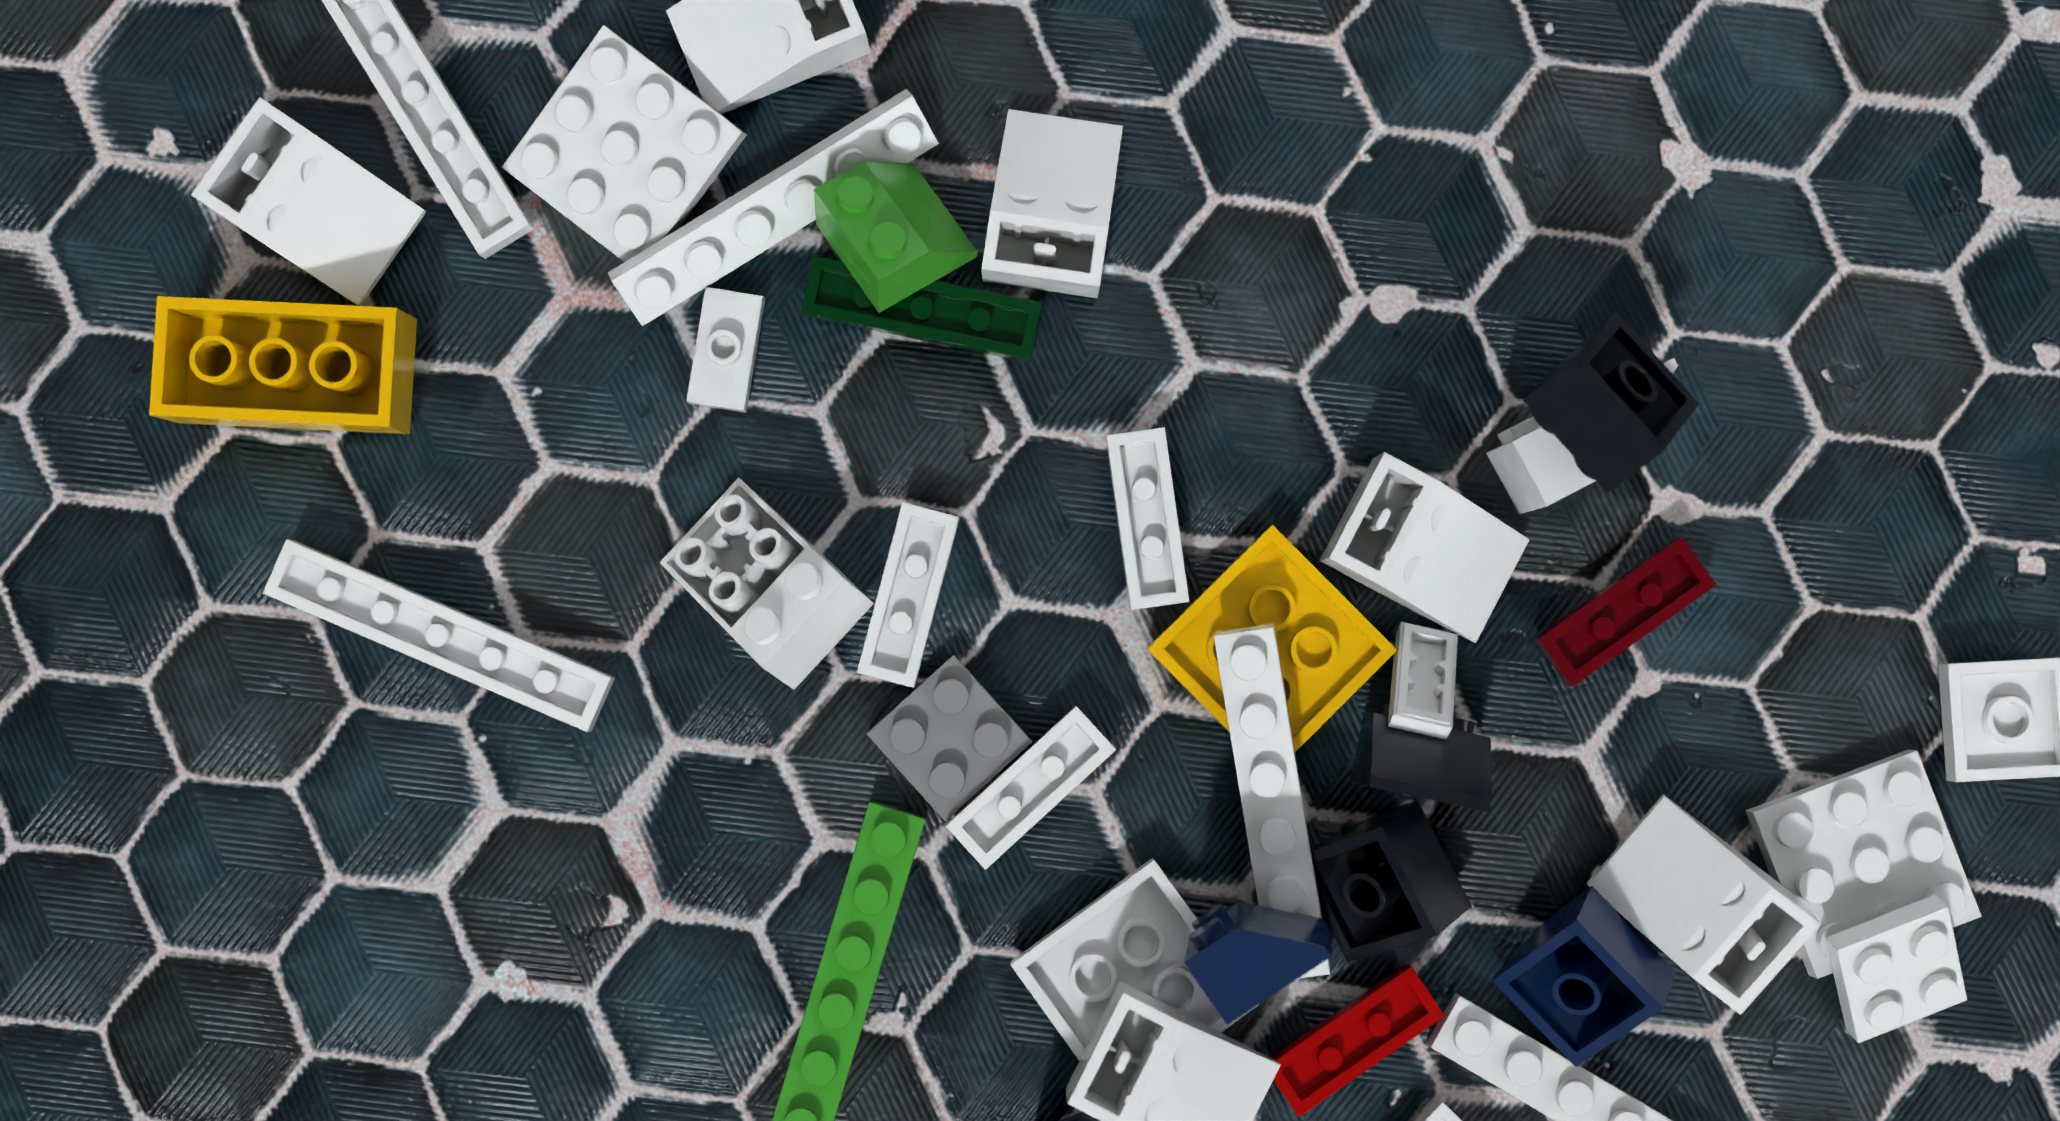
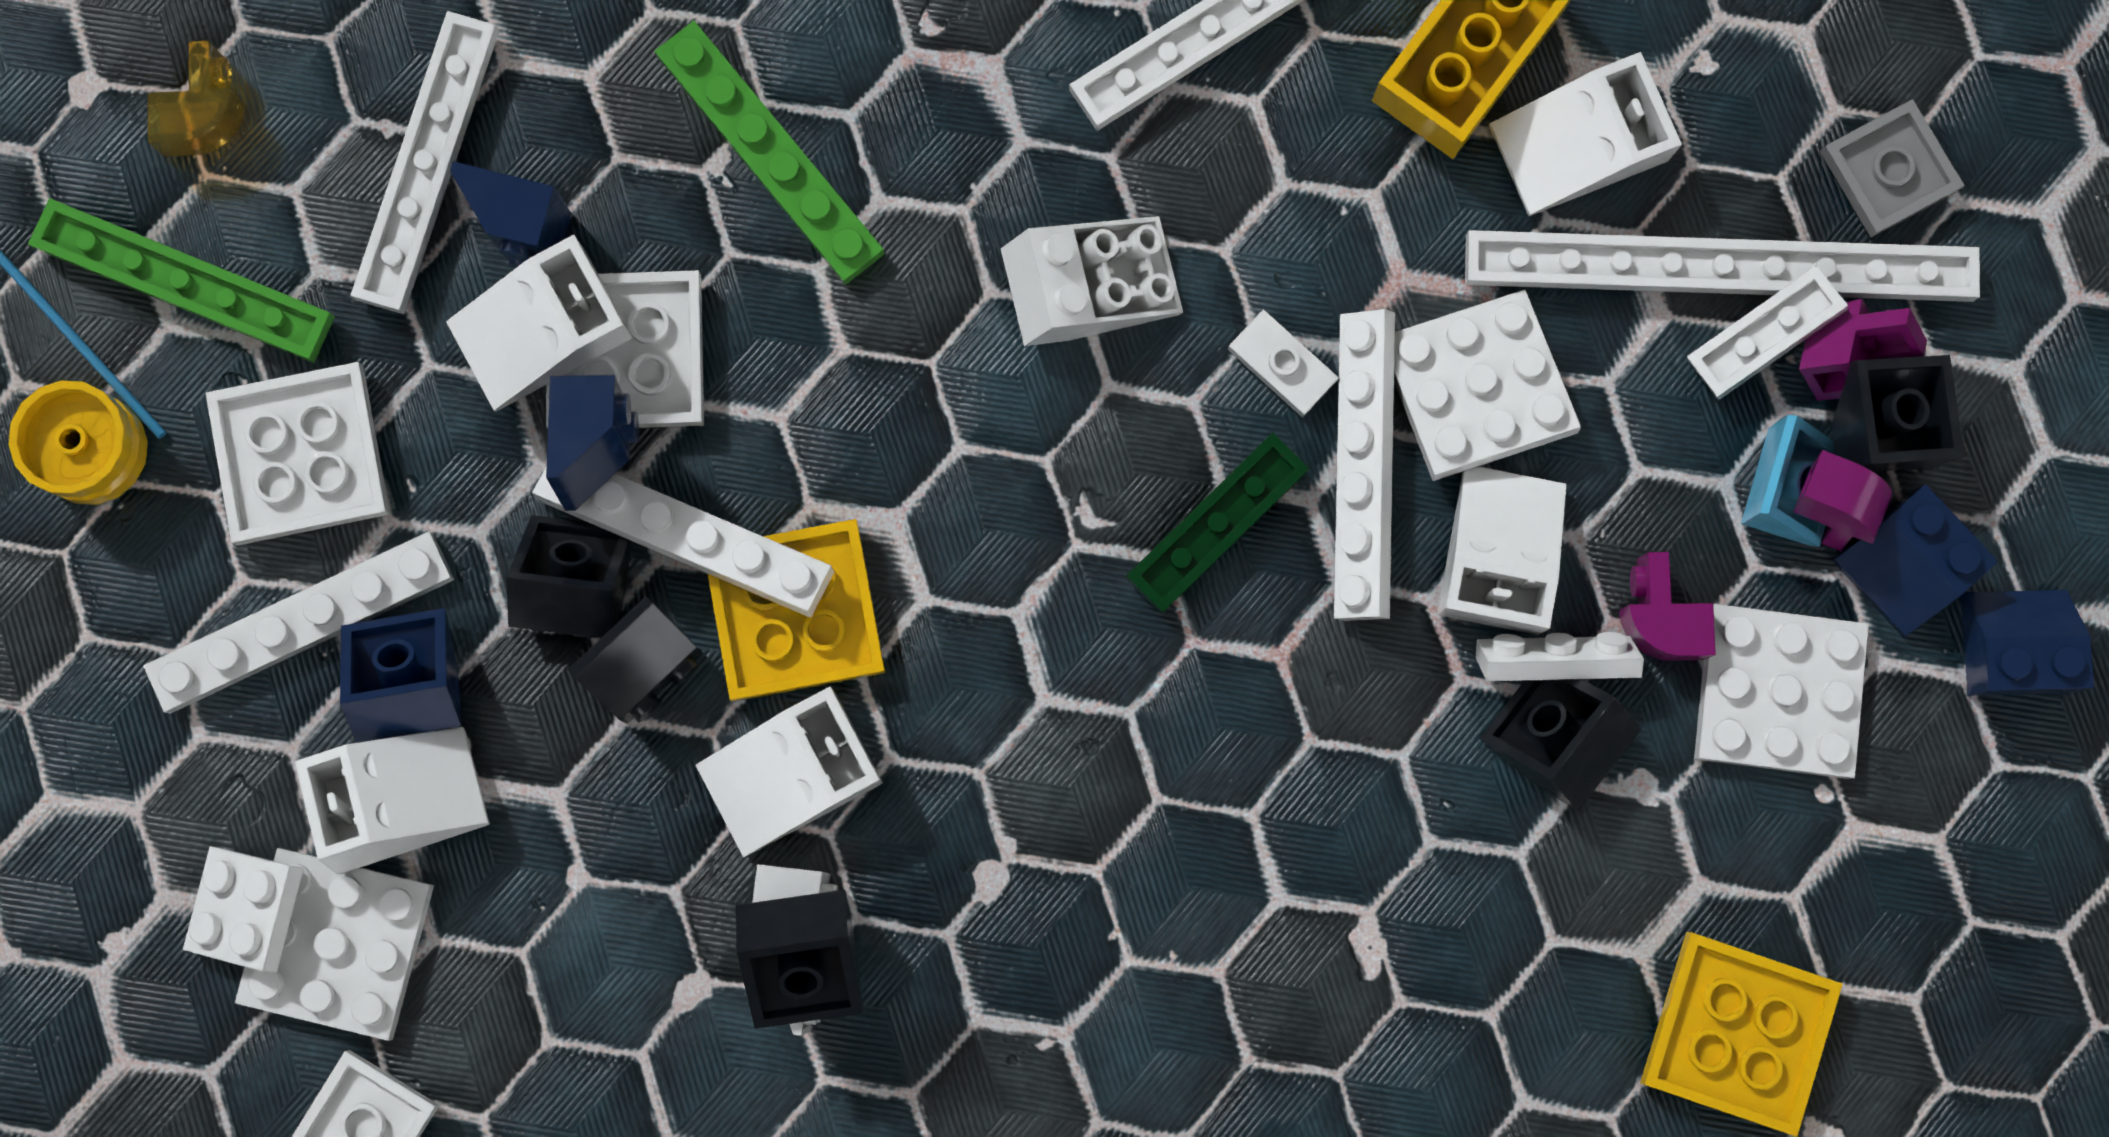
camera: 125 degrees right, 5 degrees down
(890, 230) = (1288, 537): bright green slope -> none
(908, 595) = (1013, 375): white plate -> none
(949, 737) = (890, 338): light grey plate -> none
(1030, 787) = (814, 370): white plate -> none
(1051, 203) = (1233, 670): white slope -> none
(1147, 518) = (951, 584): white plate -> none
(1355, 1039) = (473, 480): red plate -> none
(1423, 680) = (694, 702): white plate -> none
(1625, 611) = (641, 891): dark red plate -> none

